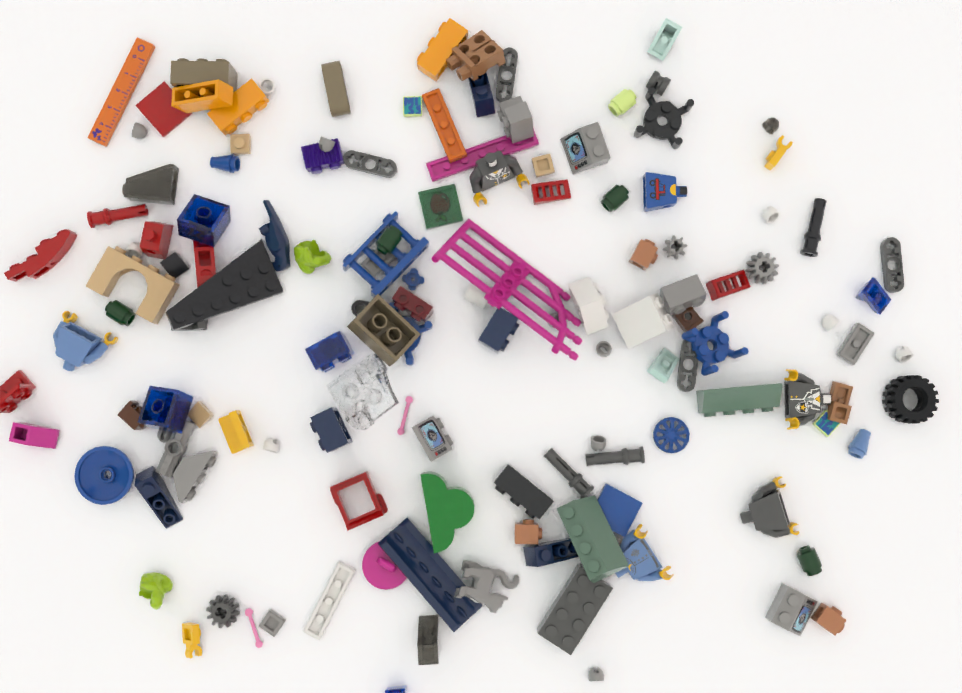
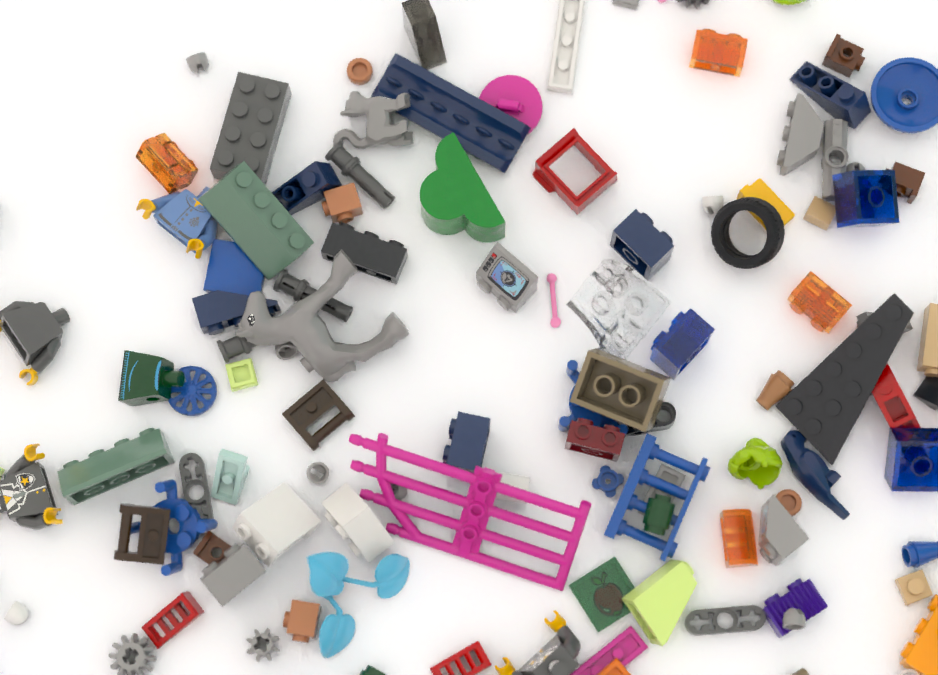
camera: 160 degrees right, 10 degrees down
(145, 521) = (838, 62): none -> reddish brown brick
(225, 555) = (718, 52): none -> clear orange brick
(226, 350) = (818, 302): none -> clear orange brick
(269, 400) = (724, 245): none -> black tyre
(279, 302) = (775, 389): none -> medium nougat cone
(300, 225) = (790, 500): none -> nougat tile
(315, 203) = (778, 532): none -> light grey slope
(341, 212) = (738, 538): none -> clear orange brick
(406, 188) = (661, 600): none -> yellowish green slope
(482, 629) = (359, 71): none -> nougat tile
(512, 558) = (351, 167): none -> dark grey pin
(579, 445) = (309, 332): none -> light grey animal
(594, 394) = (312, 408): none -> dark brown plate
(620, 271) = (328, 579): none -> medium azure plant
(633, 435) = (241, 374): none -> yellowish green tile
(634, 484) = (224, 309): none -> dark blue slope
(641, 604) = (166, 163): none -> clear orange brick
(699, 452) = (147, 379): none -> dark green torso
(728, 340) = (152, 534): none -> dark brown plate

